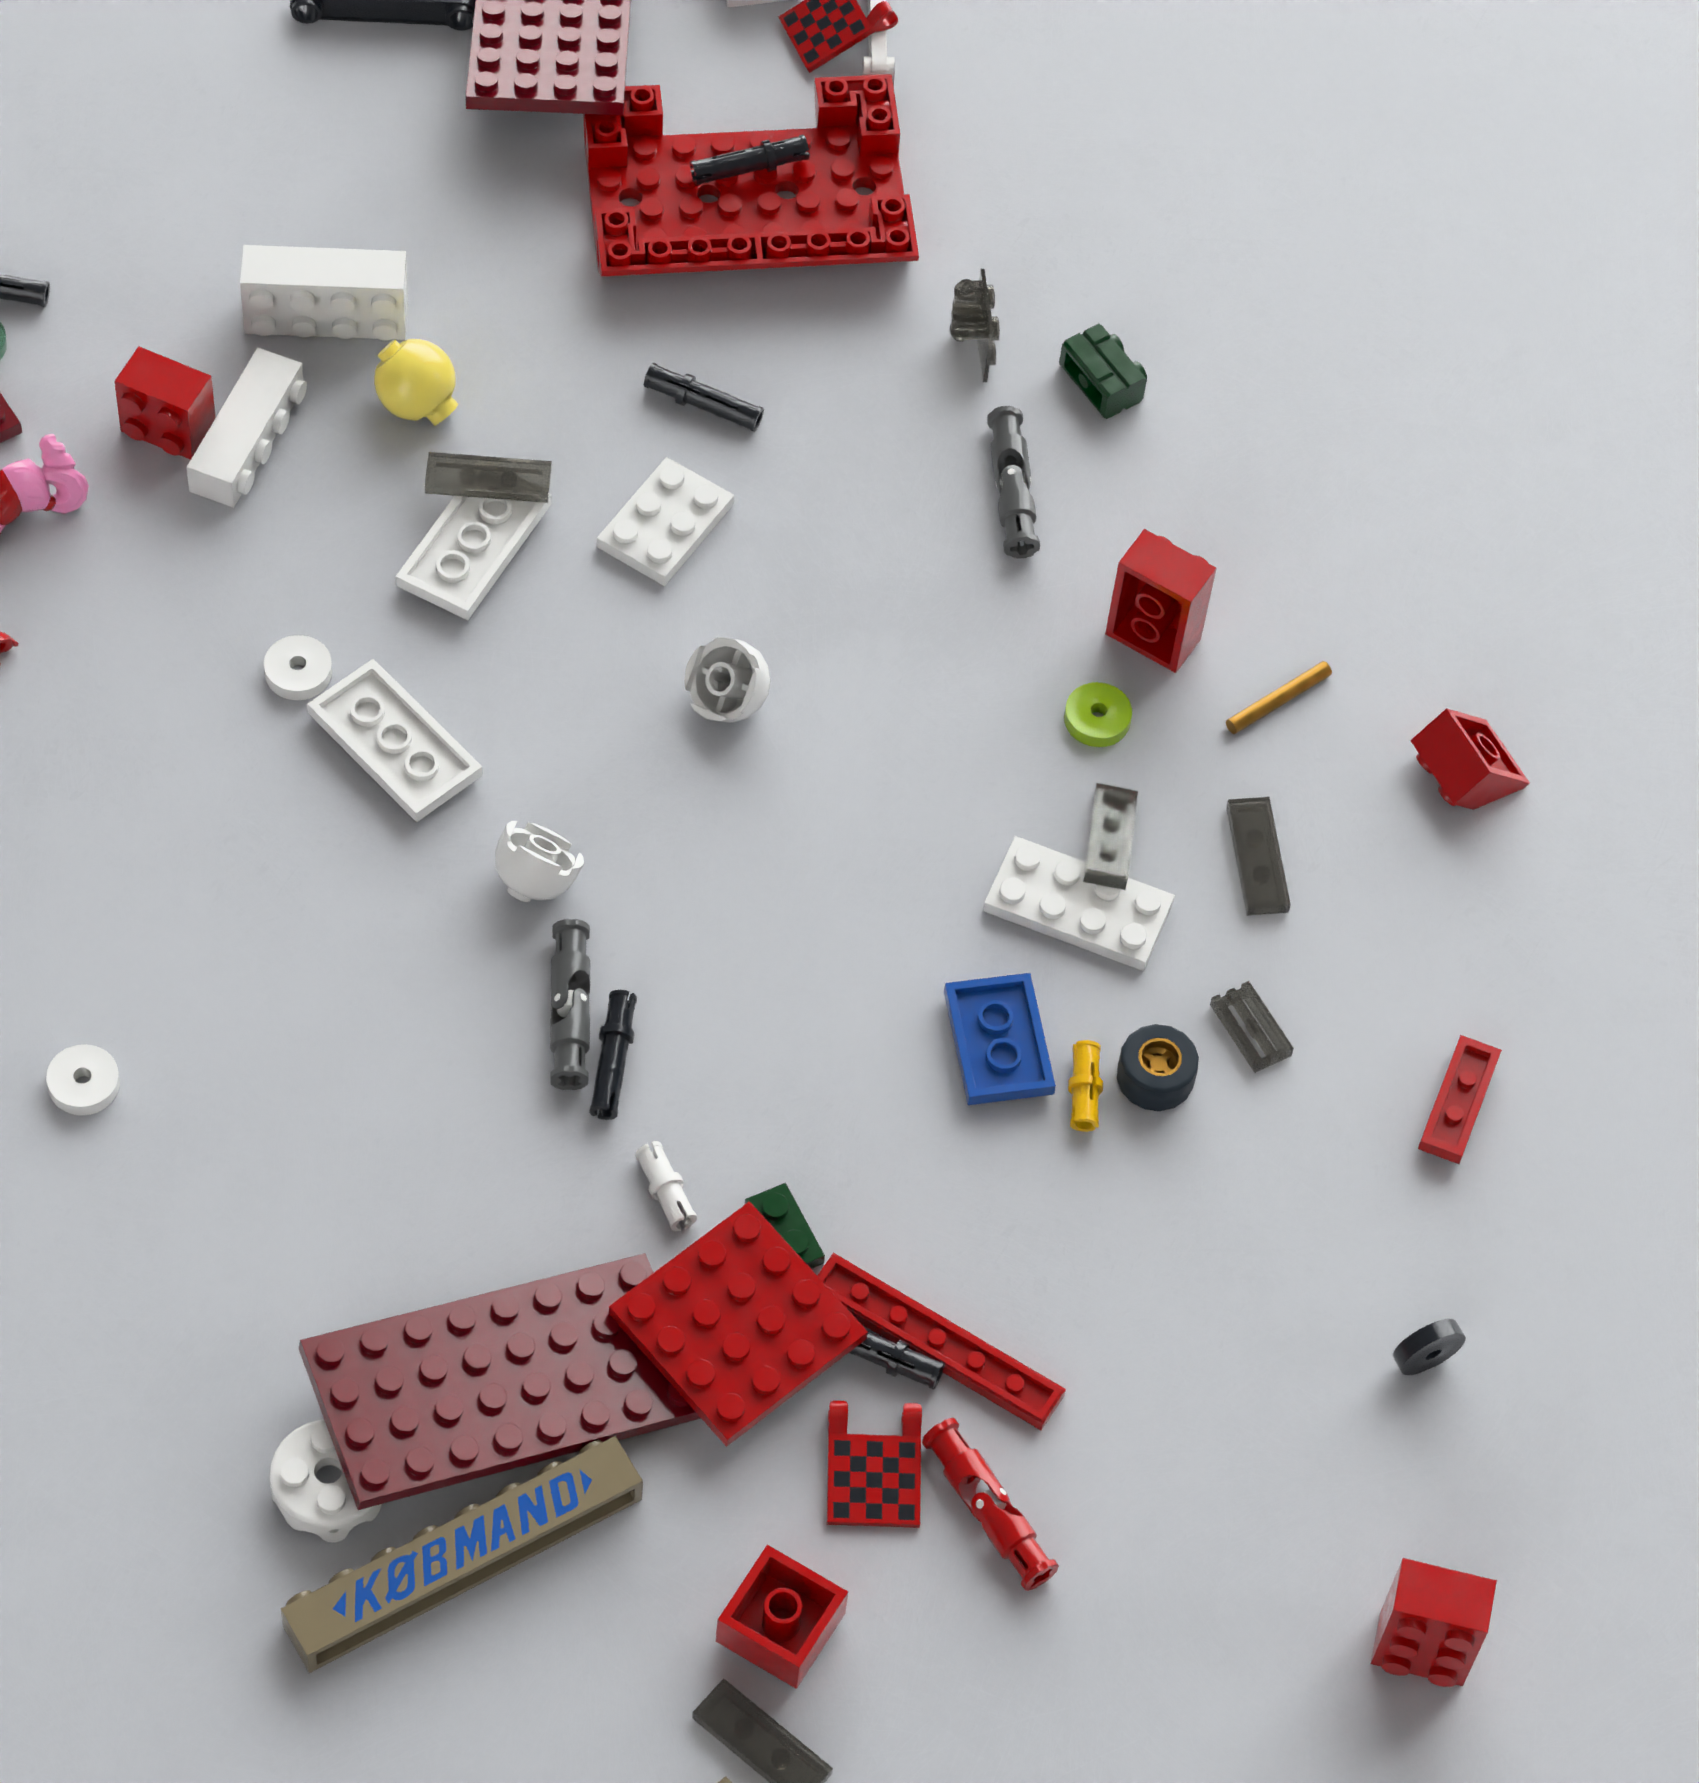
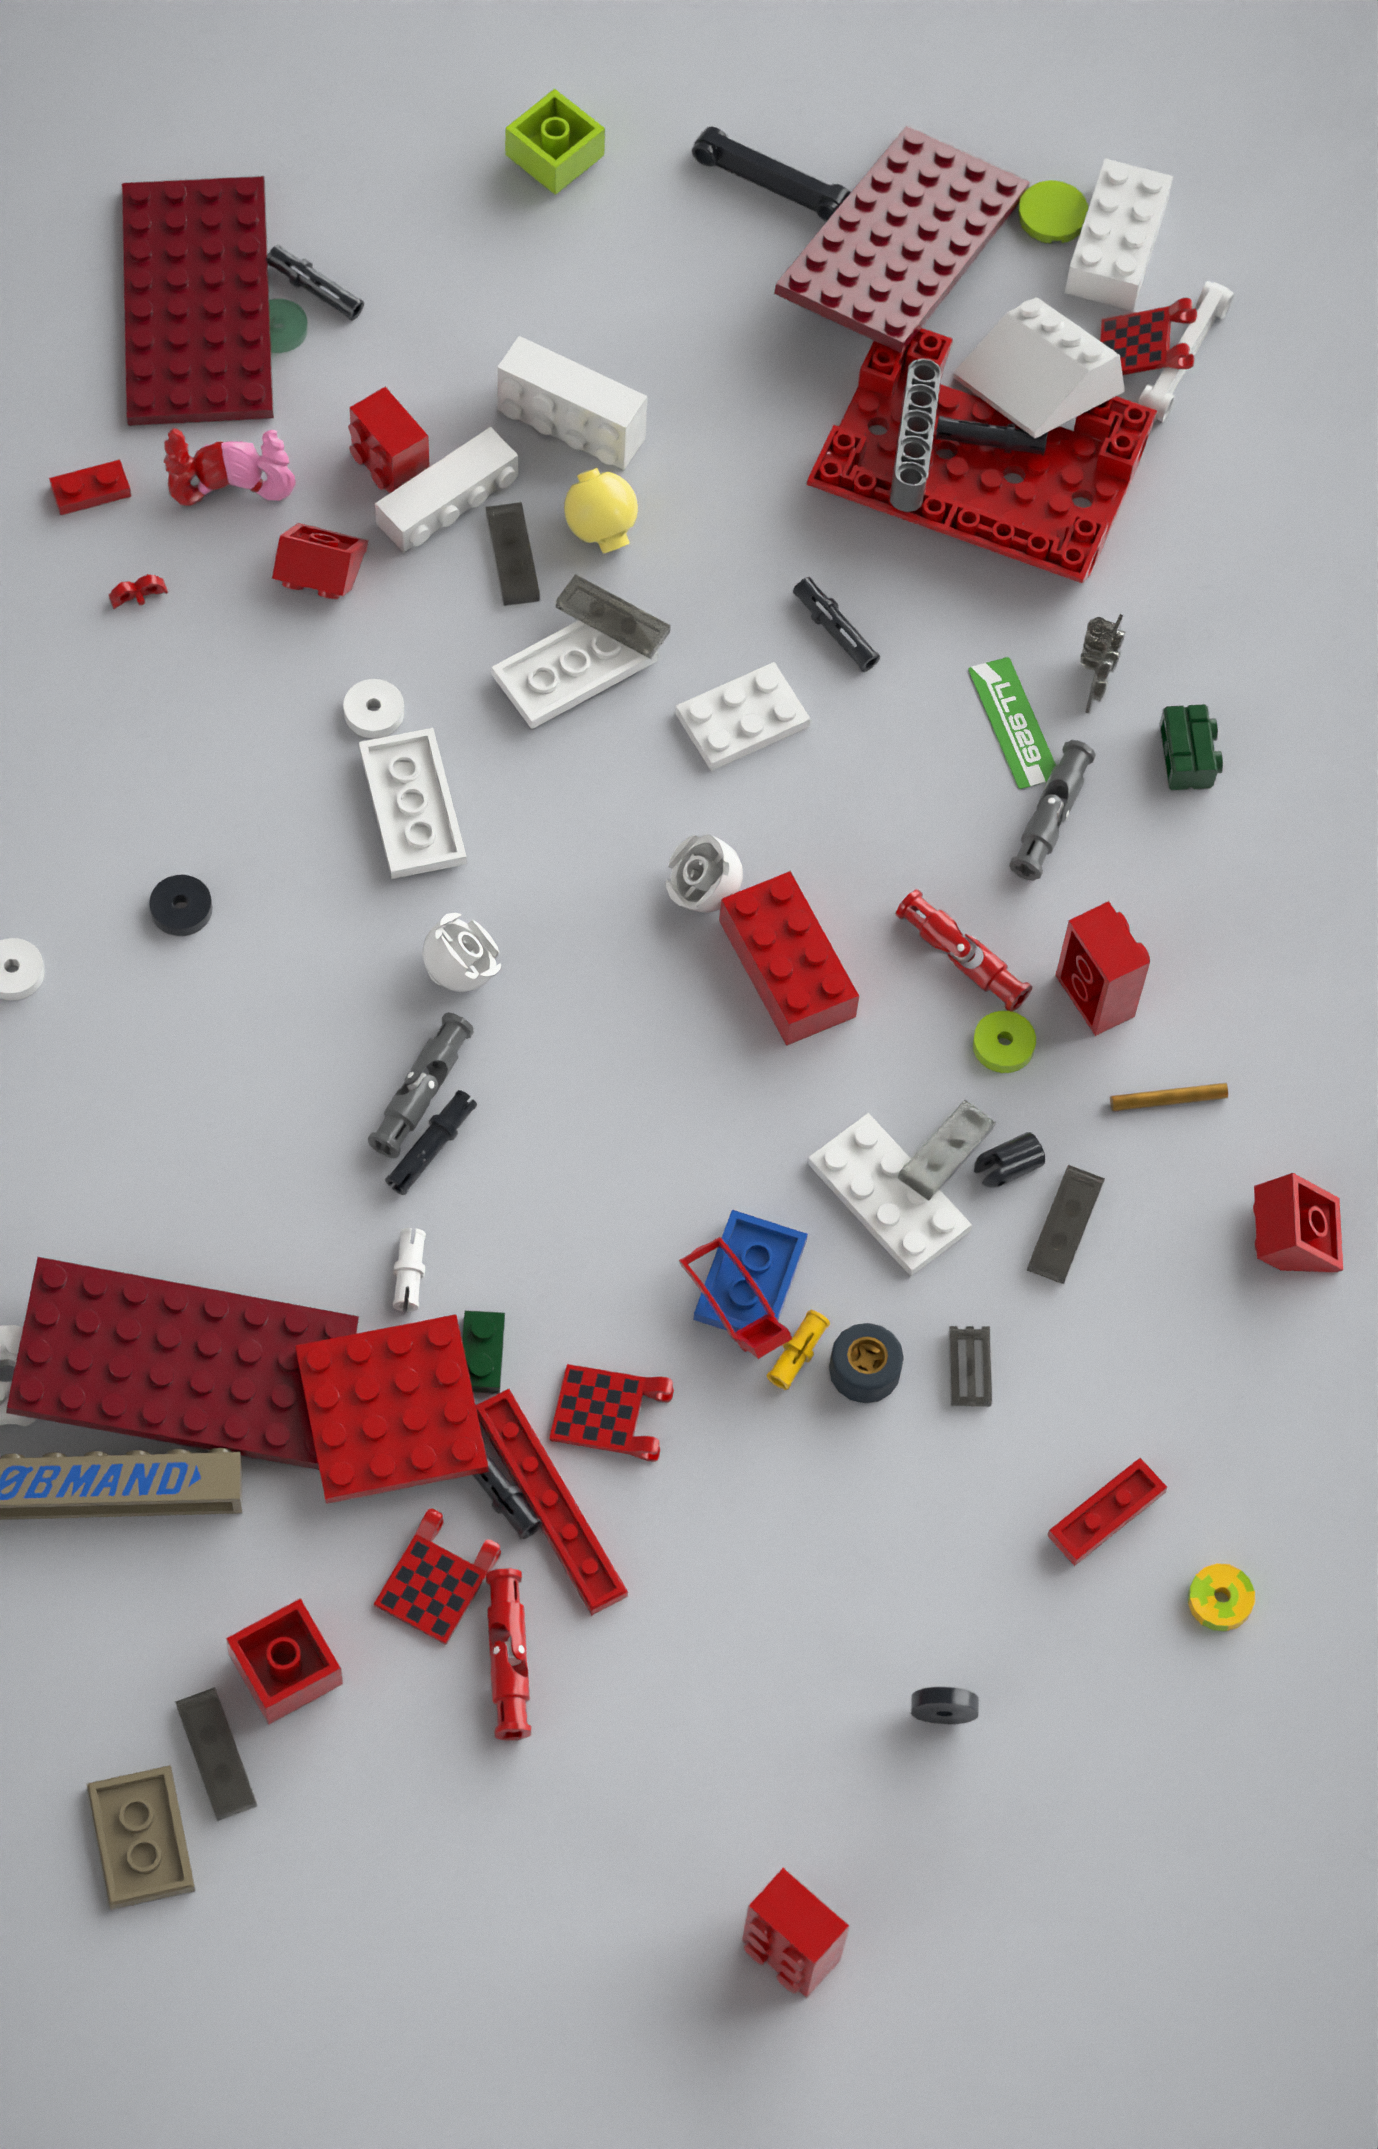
camera: 30 degrees right, 5 degrees up
(153, 54) = (555, 141): none -> lime brick
(158, 548) = (318, 560): none -> red slope
(223, 957) = (180, 920): none -> black piece
(345, 463) = (512, 554): none -> clear smoke tile
(684, 185) = (915, 435): none -> dark grey beam
(760, 78) = (1041, 368): none -> white slope
(853, 725) = (788, 958): none -> red brick
(923, 419) = (1013, 721): none -> bright green sticker
(935, 1231) = (603, 1409): none -> red flag
(988, 640) = (943, 933): none -> red piece
(1049, 1085) = (757, 1337): none -> red piece
(1175, 816) = (1014, 1158): none -> black piece
(1603, 1145) = (1217, 1614): none -> yellow piece

